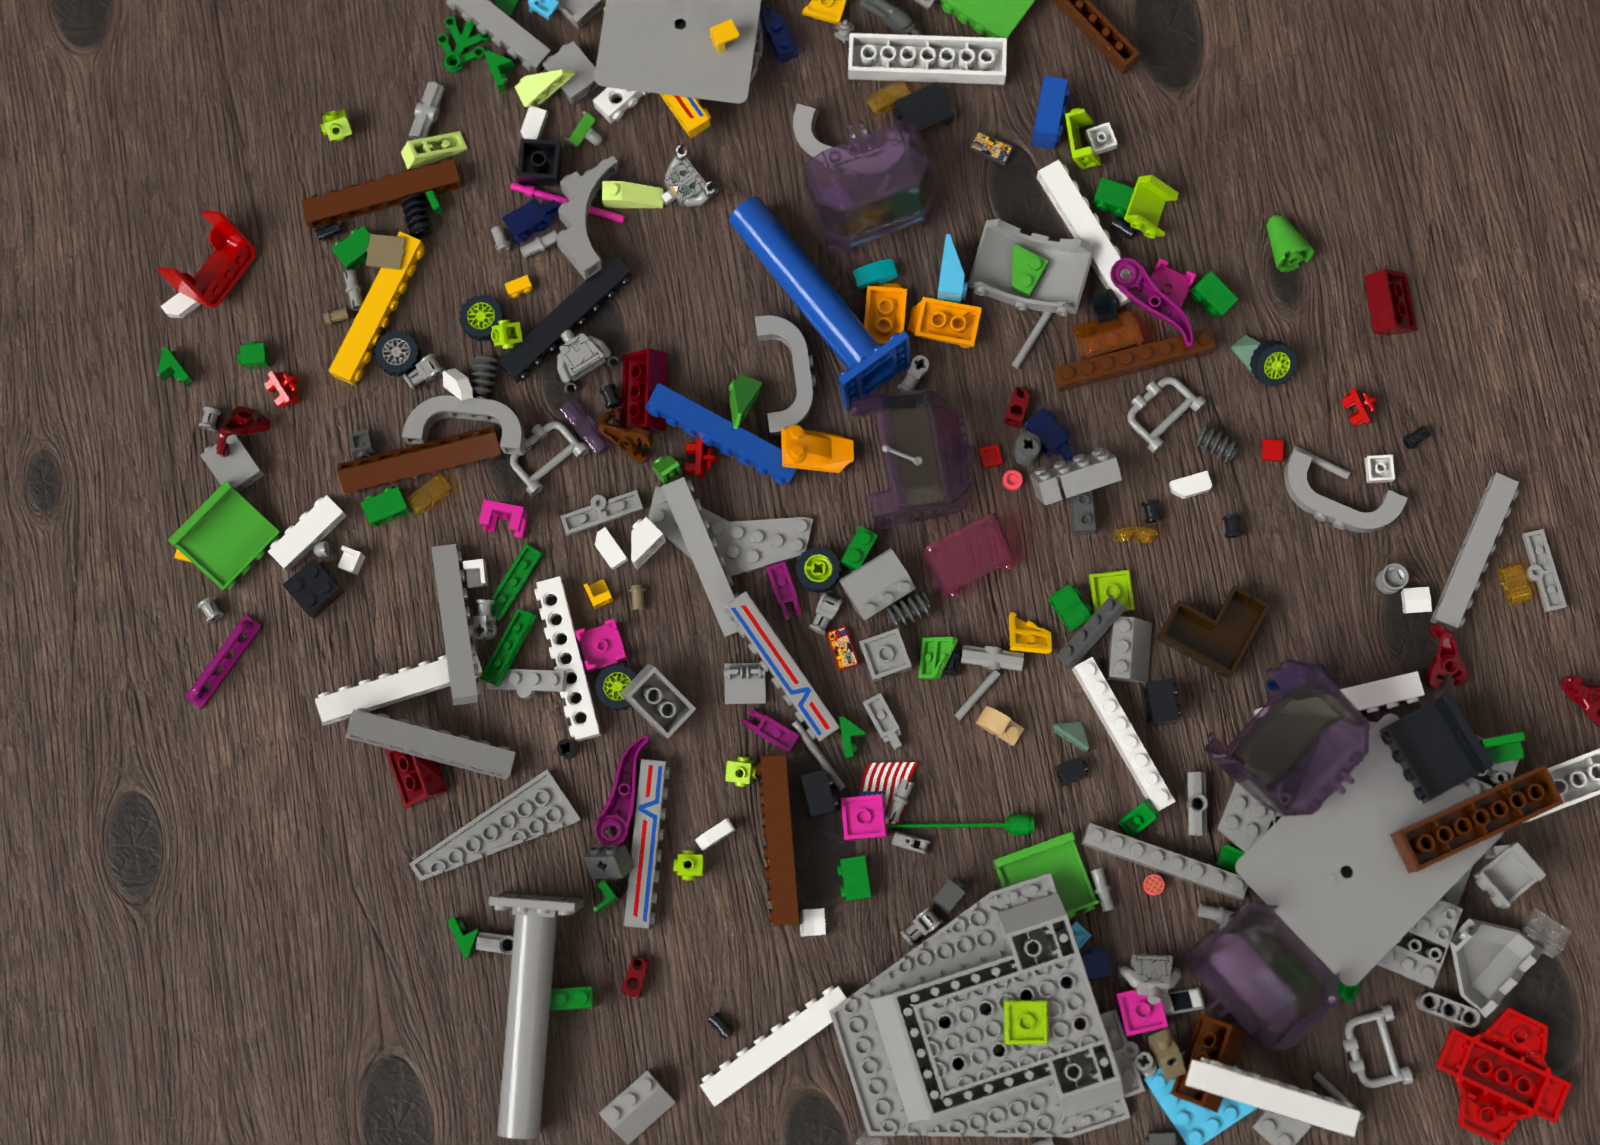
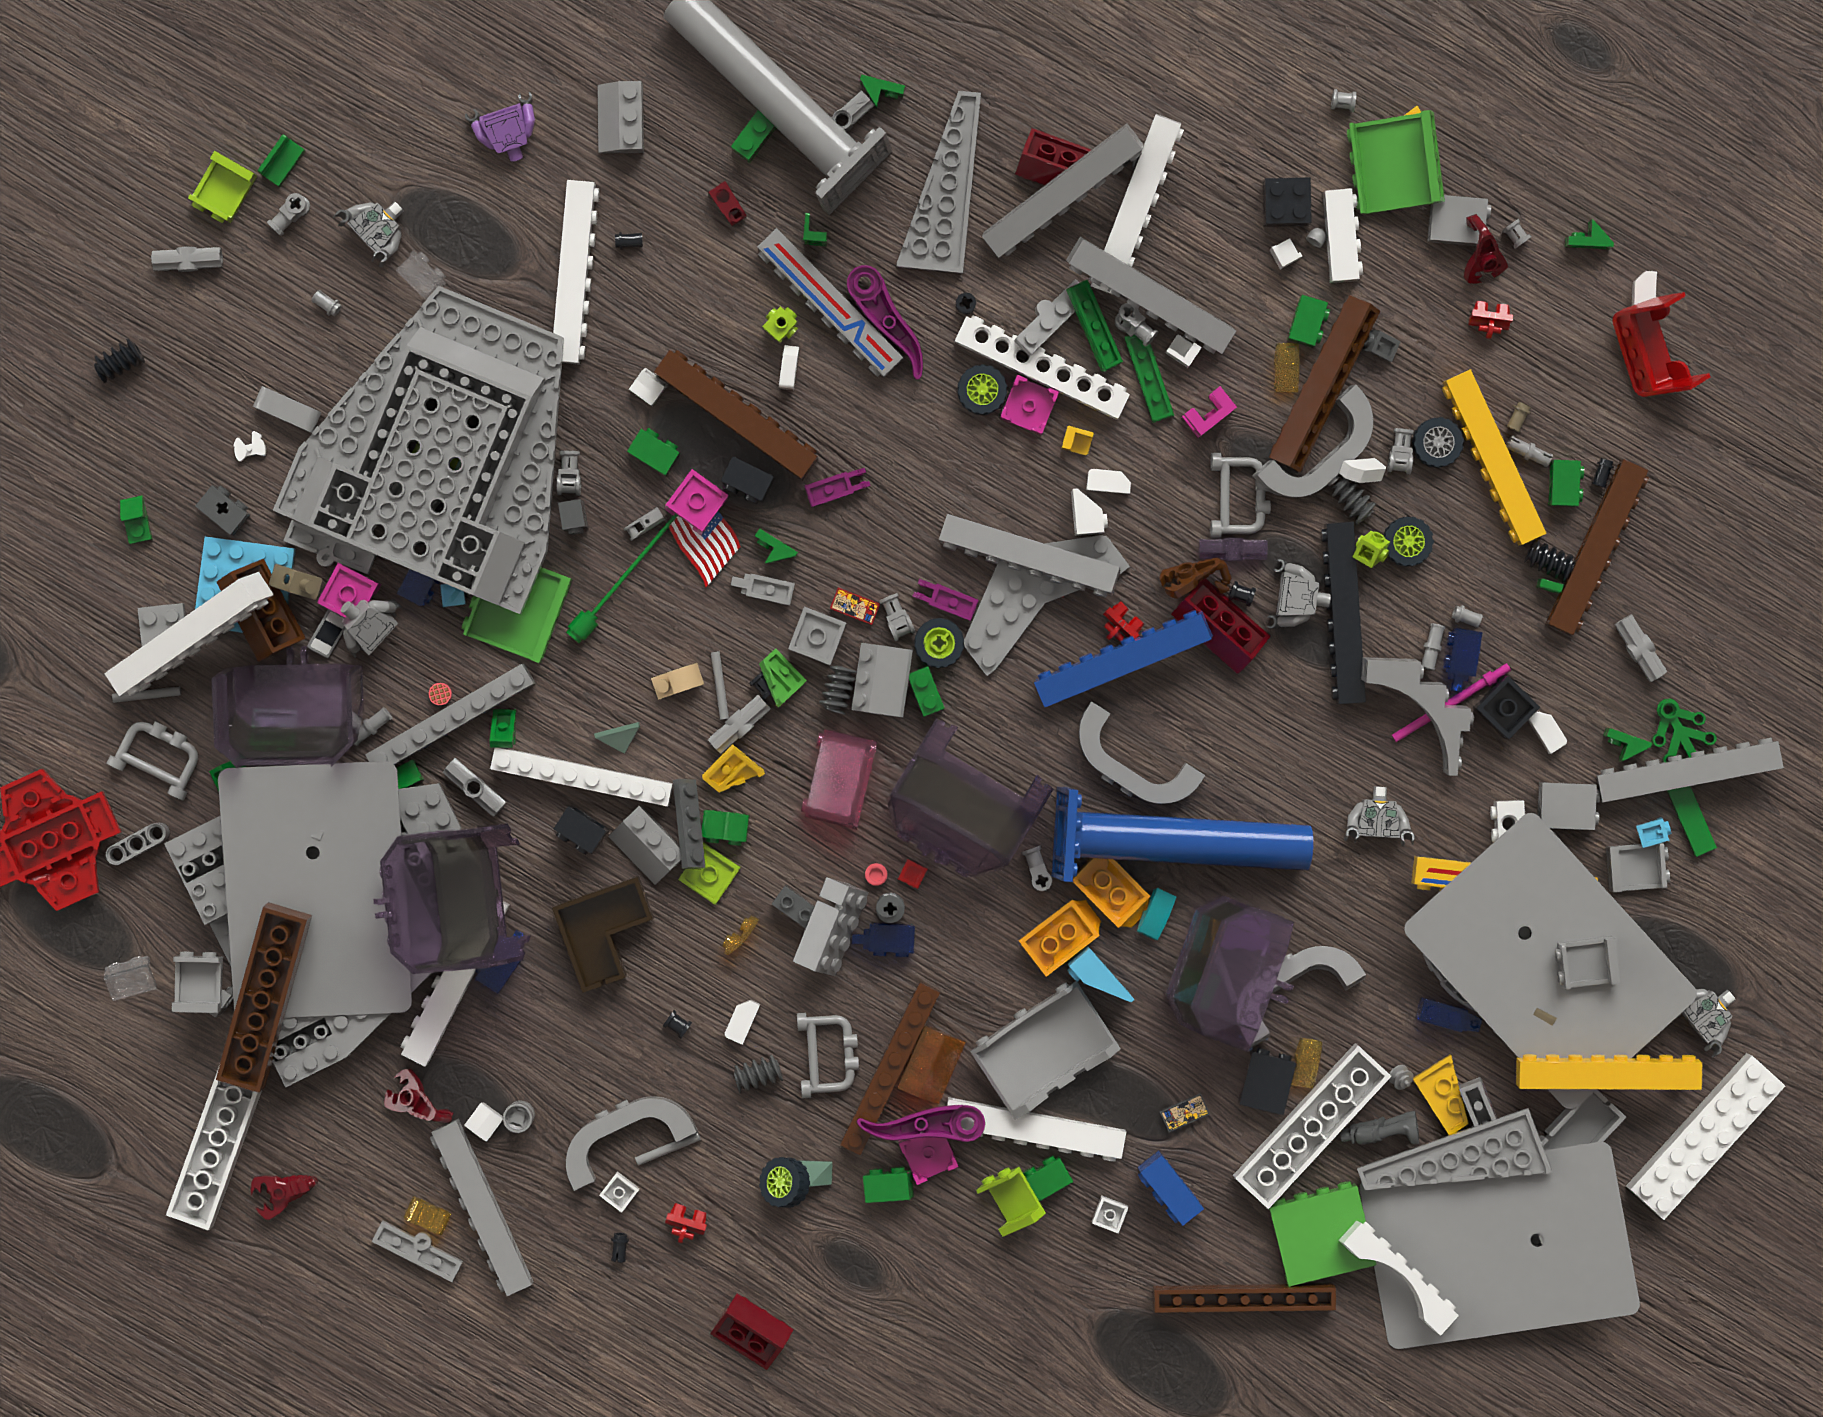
camera: 125 degrees right, 10 degrees up
(201, 698) = (1280, 31): magenta piece -> none
(253, 355) = (1542, 316): green brick -> none
(336, 125) = (1695, 558): lime brick -> none
(385, 251) = (1537, 505): dark tan piece -> none
(432, 149) = (1600, 625): yellowish green slope -> none
(519, 286) = (1409, 597): yellow piece -> none
(539, 87) = (1576, 764): yellowish green slope -> none
(583, 130) = (1504, 771): bright green piece -> none
(601, 512) = (1146, 501): light grey hinge -> none
(608, 861) = (839, 258): dark grey brick -> none
(630, 195) = (1408, 763): yellowish green slope -> none
(637, 593) = (1045, 470): dark tan pin -> none
(657, 701) = (939, 411): light grey brick -> none
(667, 469) = (1133, 586): bright green slope -> none
(722, 34) = (1479, 960): yellow panel -> none
(741, 771) = (822, 432): lime brick -> none
(742, 397) = (1142, 703): bright green slope -> none
(744, 683) = (895, 499): light grey hinge -> none
(782, 667) = (881, 540): light grey brick -> none
(815, 450) = (1043, 727): light orange slope -> none
(818, 754) = (782, 509): light grey bar -> none
(899, 800) = (686, 543): light grey pin -> none
(917, 461) = (950, 795): light grey hinge -> none
(1017, 407) = (934, 933): dark red leg -> none
(1025, 1022) = (416, 487): lime tile -> none
(1026, 270) = (1048, 1045): bright green wing -> none
(1031, 339) = (984, 998): light grey bar -> none
(1071, 771) = (588, 707): black brick -> none
(1086, 156) = (1125, 1188): lime panel -> none
(1102, 890) = (471, 648): light grey pin -> none
(1105, 305) = (958, 1084): black panel -> none
(1123, 228) = (1014, 1162): black pin -> none
(1149, 1069) = (297, 557): light grey bush -> none
(1152, 511) = (748, 967): black bush -> none
(1272, 450) = (712, 1116): red tile -> none
(1287, 244) = (878, 1289): bright green cone -> none
(1435, 748) = (349, 1017): black panel -> none
(1490, 962) = (144, 910): light grey panel -> none
(1504, 747) = (302, 1072): green panel -> none

